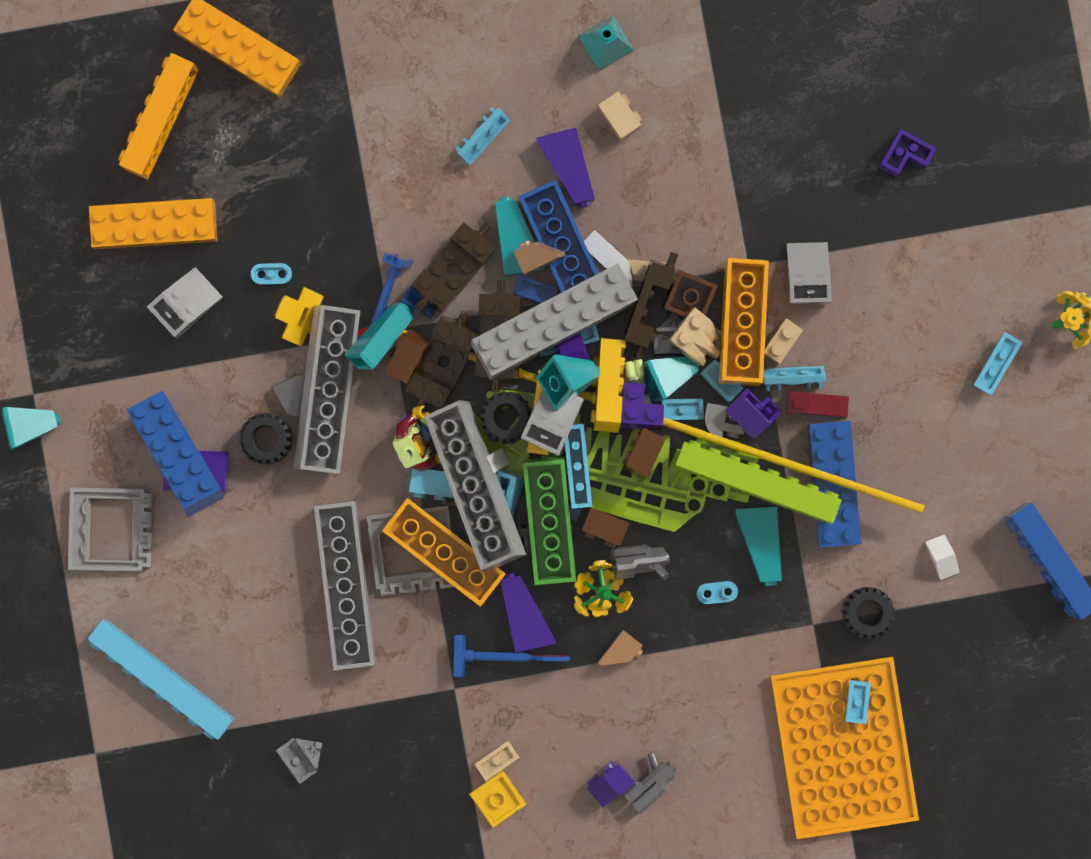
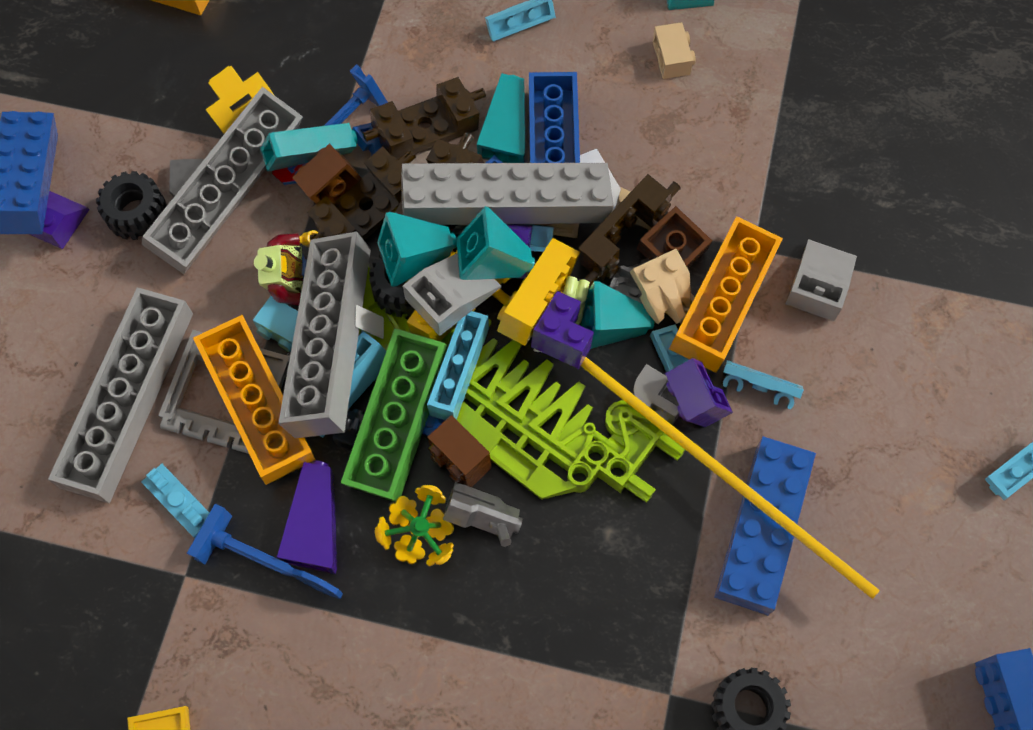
camera: 20 degrees right, 20 degrees down
(184, 302) = (129, 48): light grey slope -> none
(271, 273) = (237, 58): medium azure plate -> none
(422, 641) = (176, 499): none -> medium azure plate
(497, 761) = (184, 689): tan plate -> none
(507, 398) = (412, 245): none -> teal slope
(536, 255) = (519, 131): medium nougat slope -> none
(568, 162) = (597, 71): dark purple slope -> none
(622, 650) = (409, 616): medium nougat slope -> none
(644, 454) = (544, 381): reddish brown brick -> none
(683, 409) = (616, 364): medium azure plate -> none
(717, 592) = (561, 601): medium azure plate -> none
(758, 483) = (674, 471): lime brick -> none
(762, 540) = (648, 548): teal slope -> none
(782, 341) = (763, 336): tan brick -> none
(817, 404) = (777, 422): dark red slope -> none
(906, 148) = (986, 192): dark purple brick -> none
(942, 557) = (876, 680): white slope -> none

